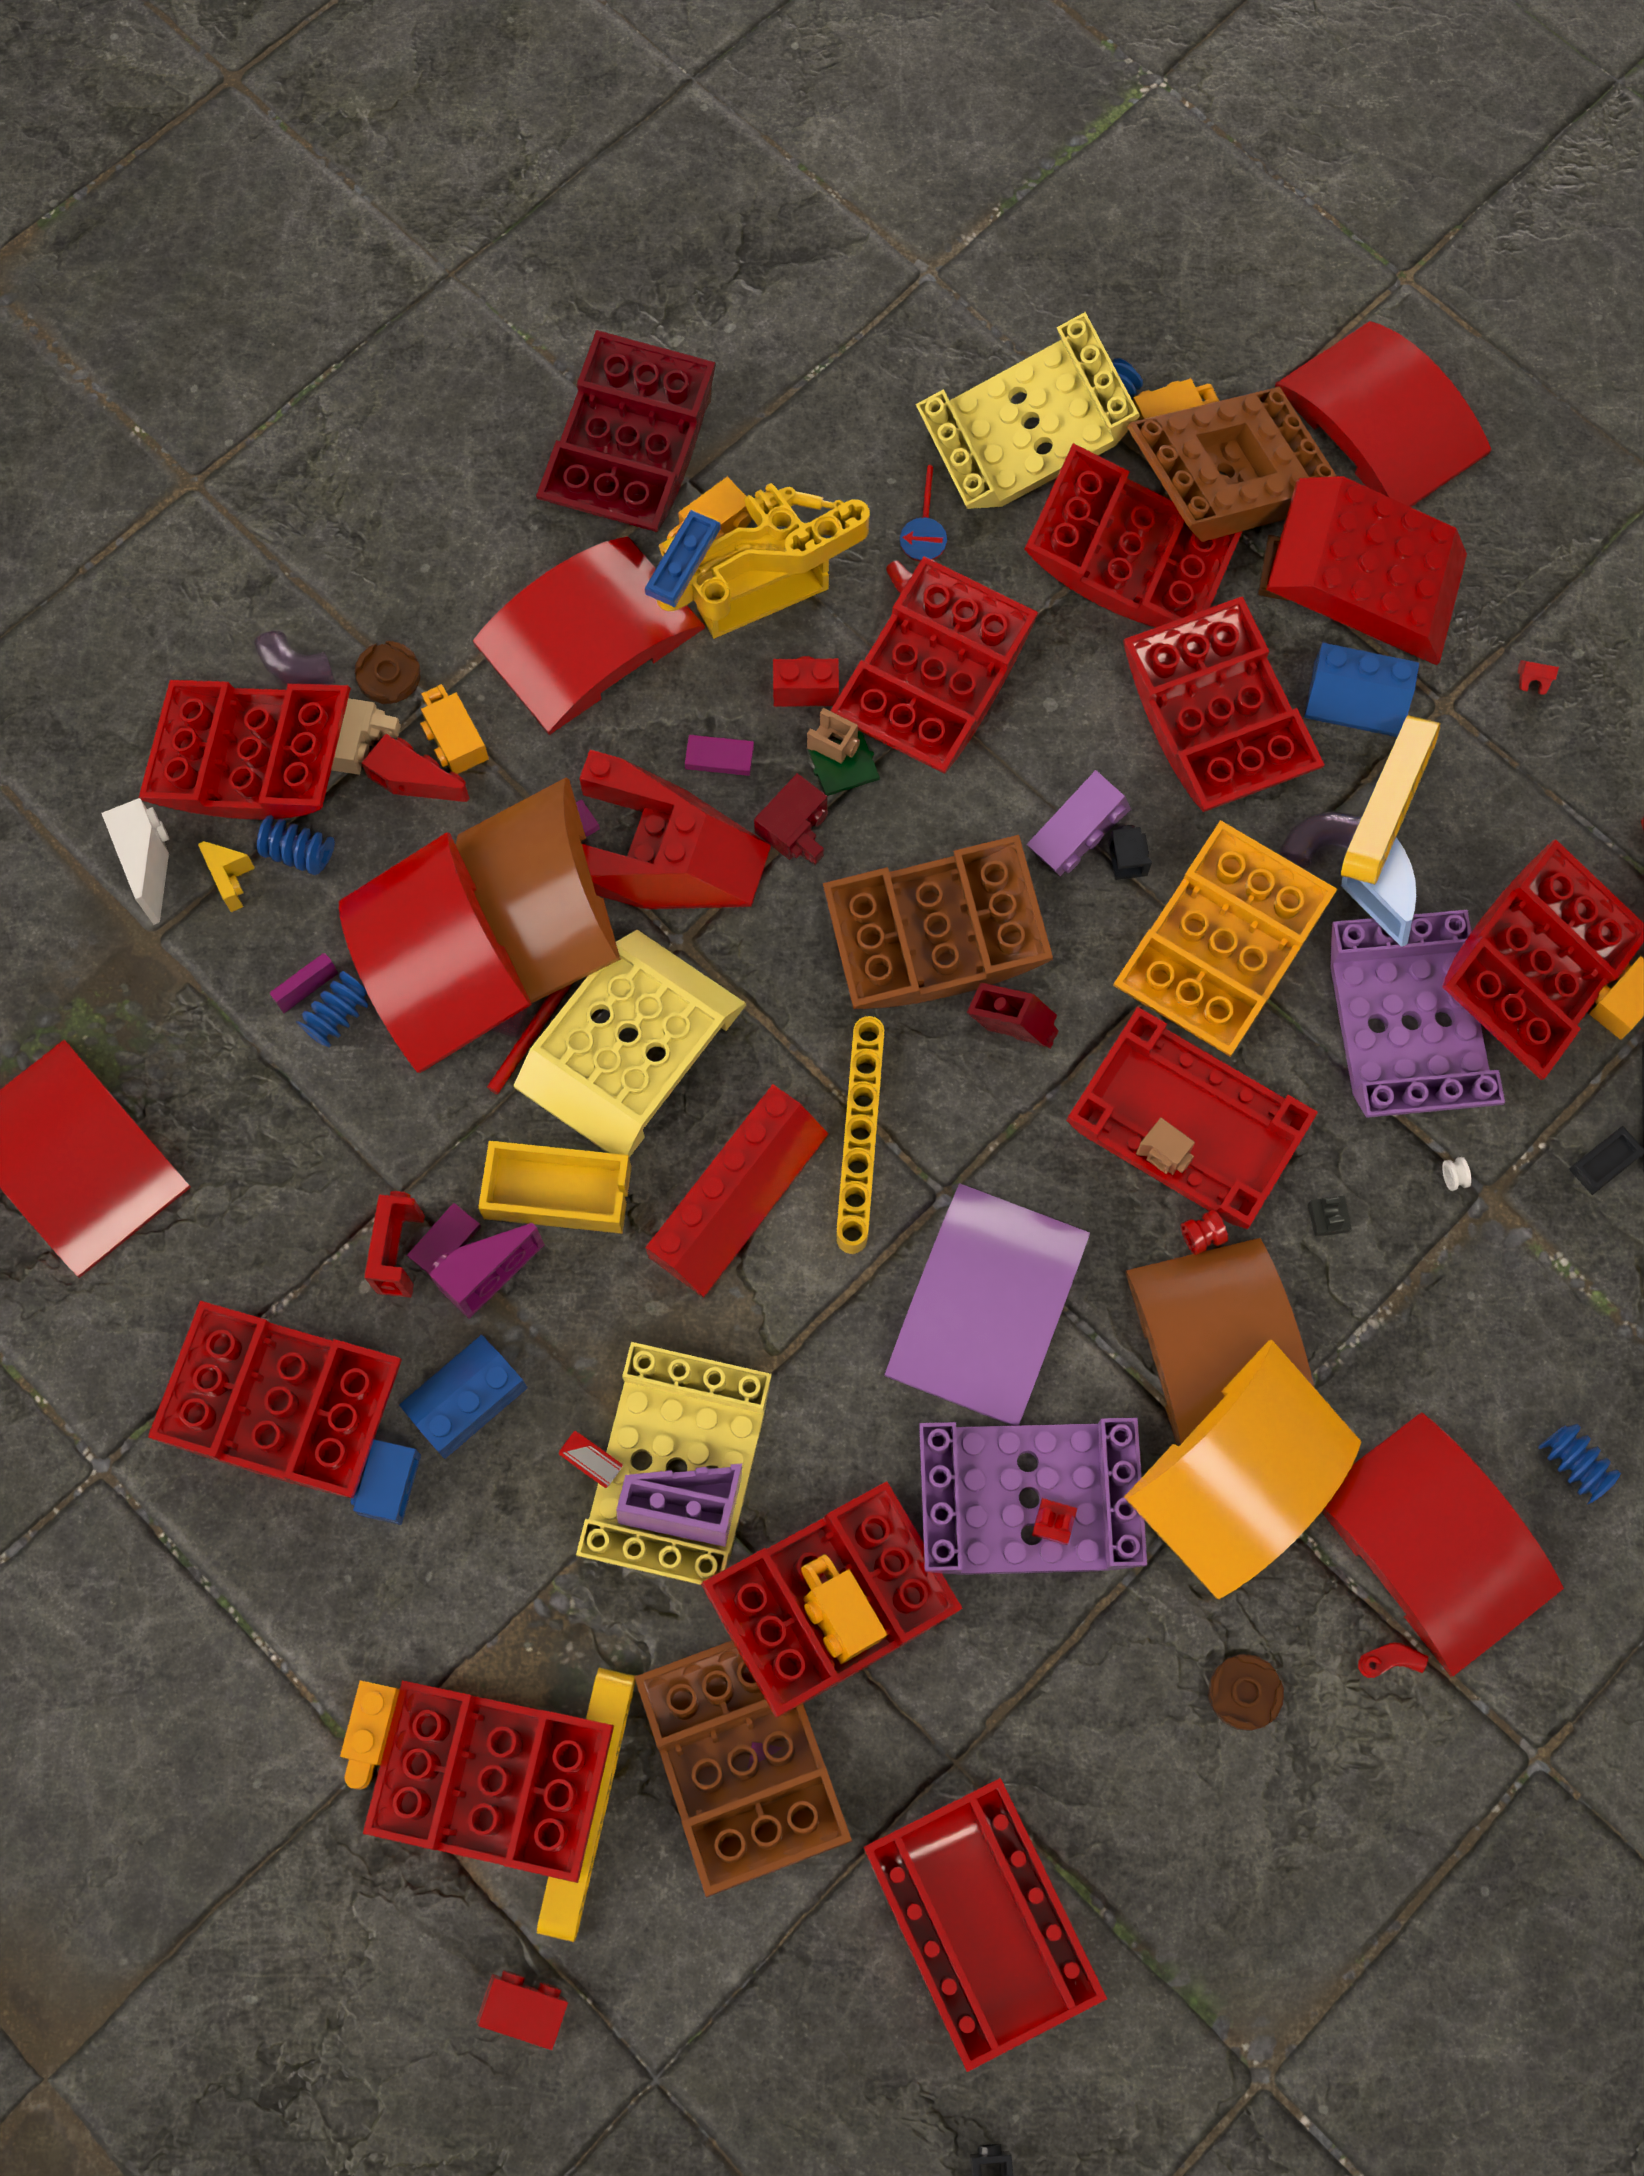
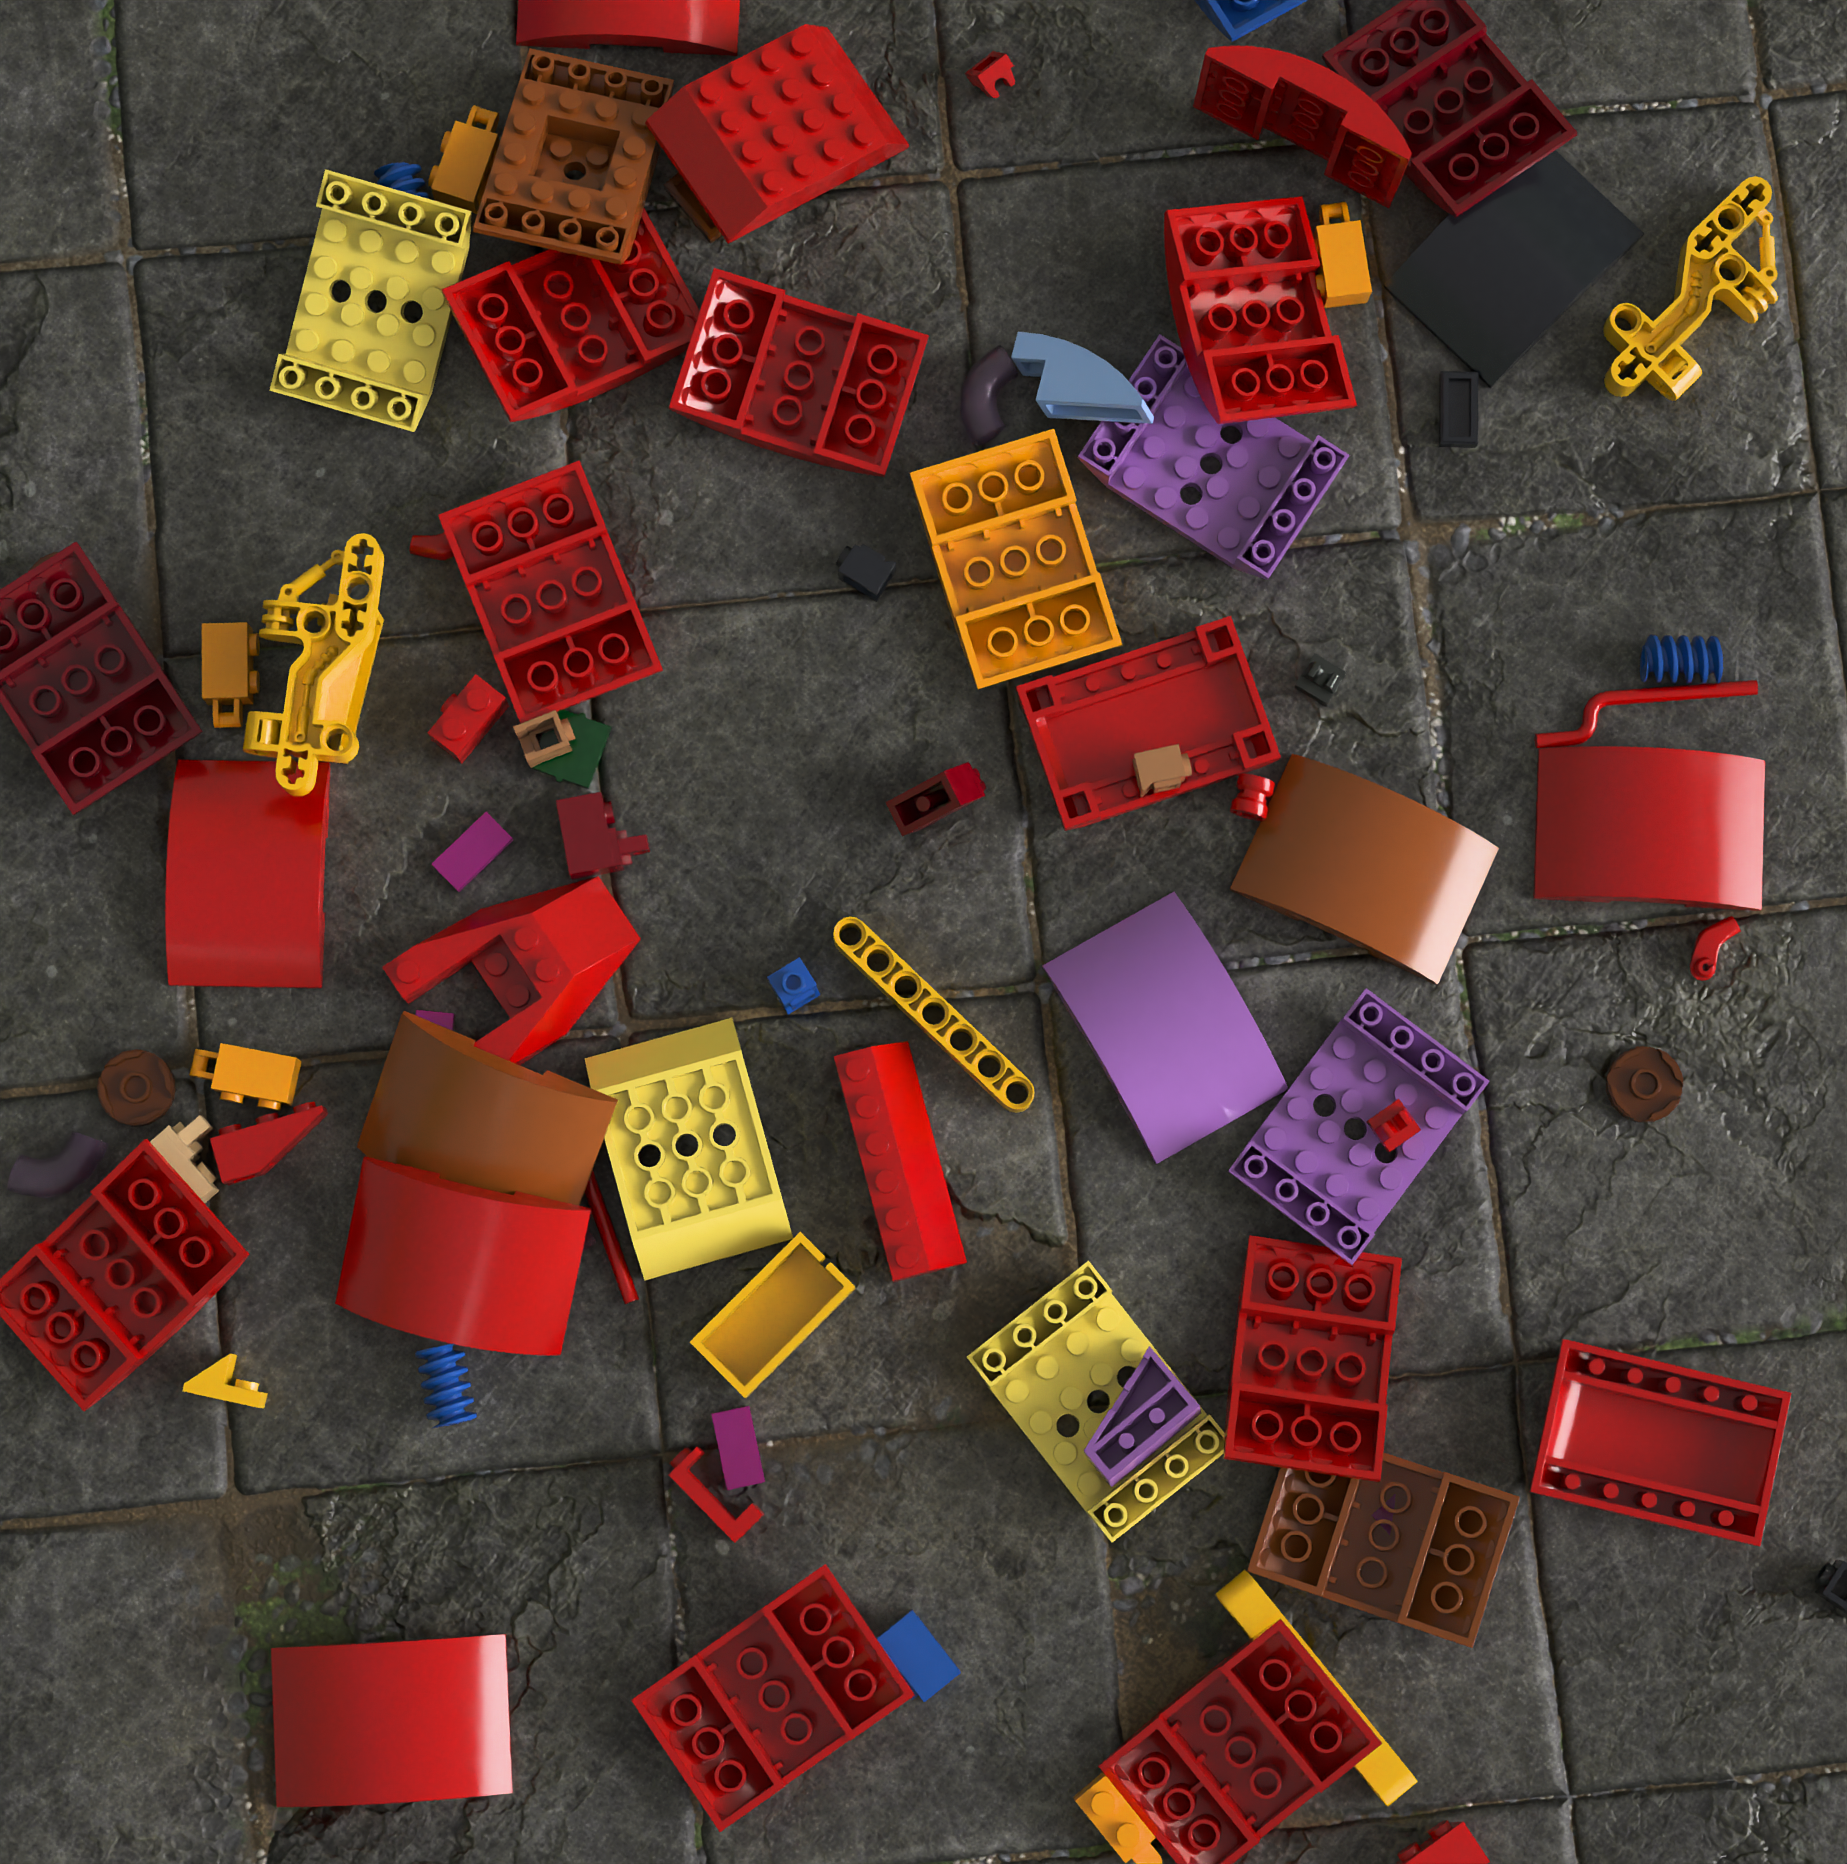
camera: 55 degrees left, 10 degrees up
(142, 852) = (145, 1446): white slope -> none
(294, 848) = (252, 1304): blue piece -> none
(303, 982) = (395, 1393): magenta tile -> none
(463, 1396) = (890, 1535): blue slope -> none
(480, 1269) = (796, 1442): magenta slope -> none
(590, 1459) = (1033, 1468): sticker -> none
(682, 558) = (282, 742): blue tile -> none
(801, 1024) = (793, 985): none -> blue window
(840, 1610) = (1331, 1360): light orange brick -> none
(924, 535) = (404, 492): blue piece -> none
(938, 926) = (799, 793): dark orange slope -> none
(1079, 824) = (808, 593): medium lavender wedge -> none
(1248, 1474) = (1483, 935): light orange slope -> none
(1361, 689) = (881, 238): blue slope -> none
(1390, 800) = (1010, 309): yellow beam -> none
(1456, 1173) = (1371, 544): white bush -> none
(1530, 1459) = (1638, 696): none -> red piece

